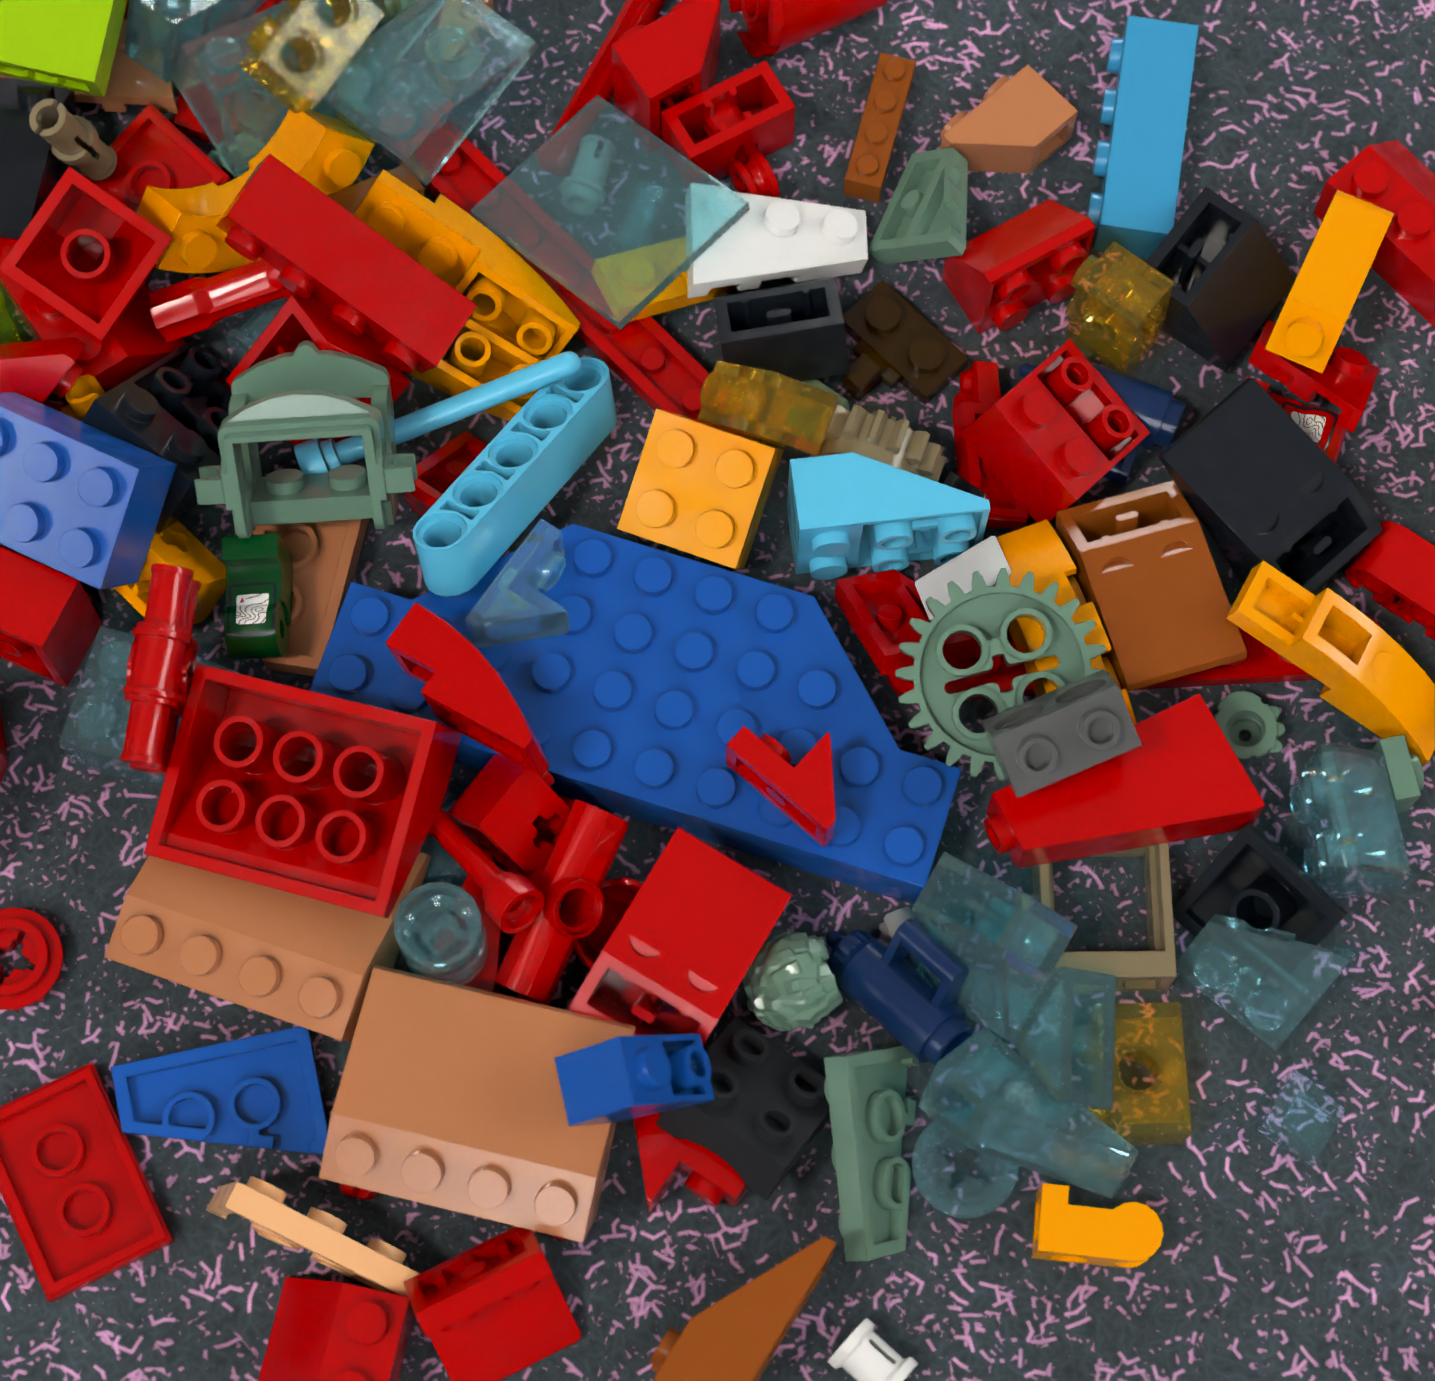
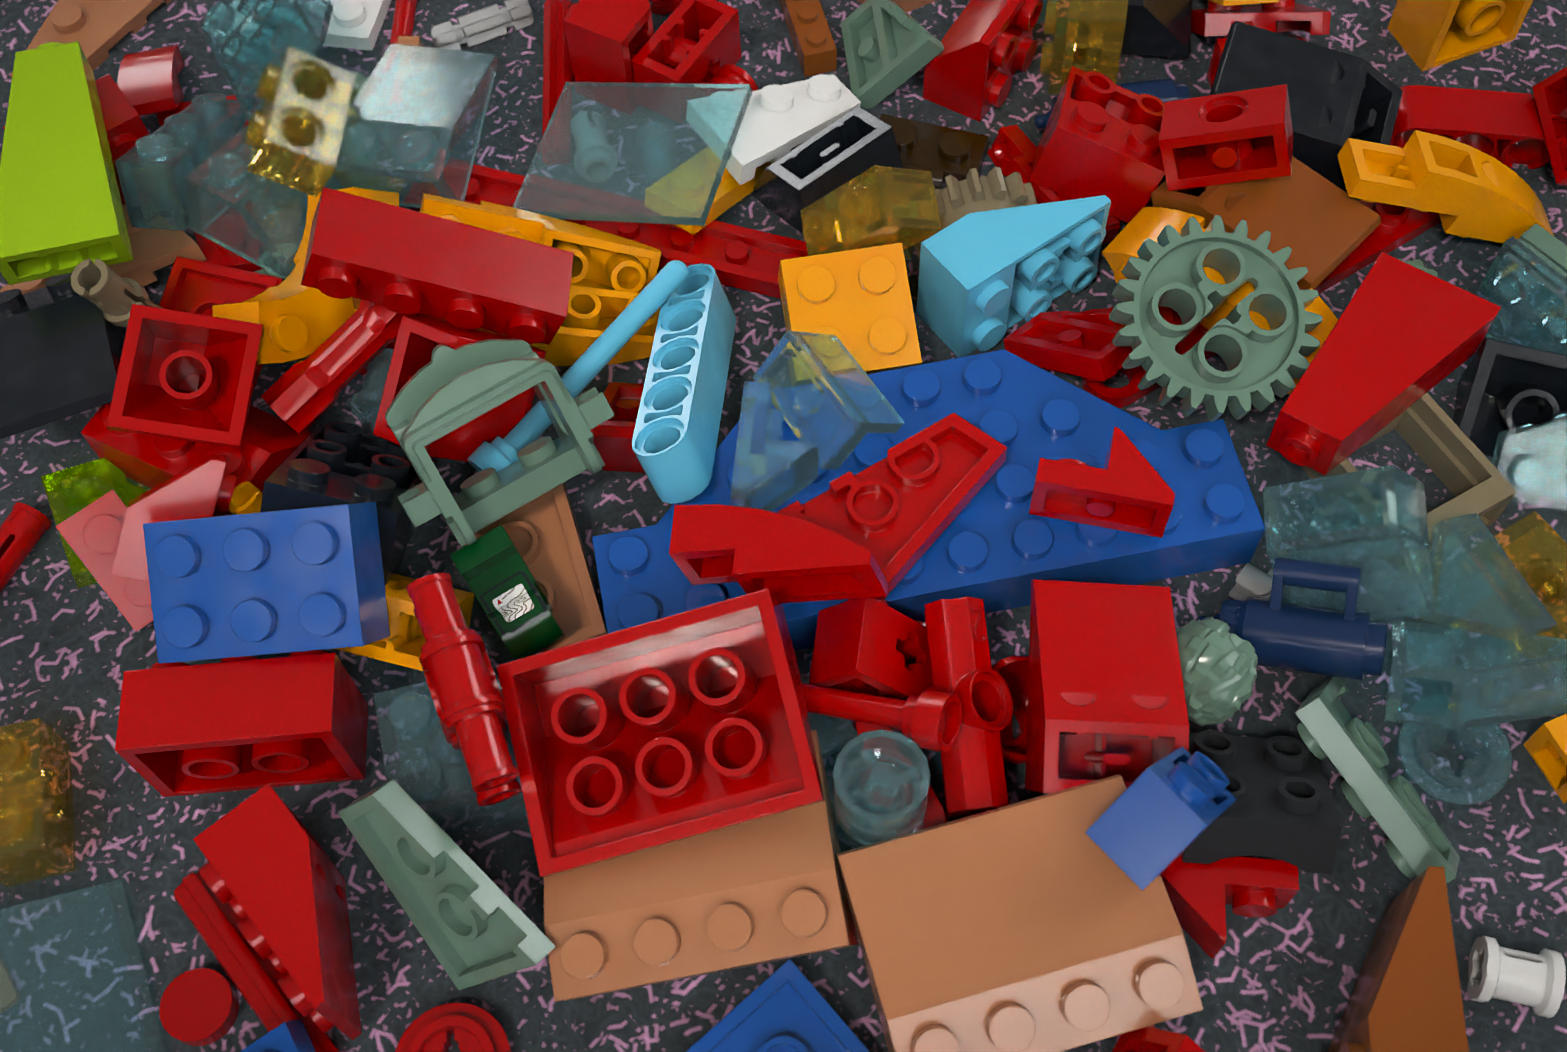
camera: 25 degrees left, 10 degrees down
(65, 824) = (443, 892): none -> sand green wing
(614, 698) = (908, 496): none -> red wing
(617, 562) = (825, 395): none -> clear light blue panel
(961, 570) = (1095, 295): white sticker -> none
(1061, 733) = (1314, 323): dark grey brick -> none
(1146, 500) = (1227, 138): none -> red brick

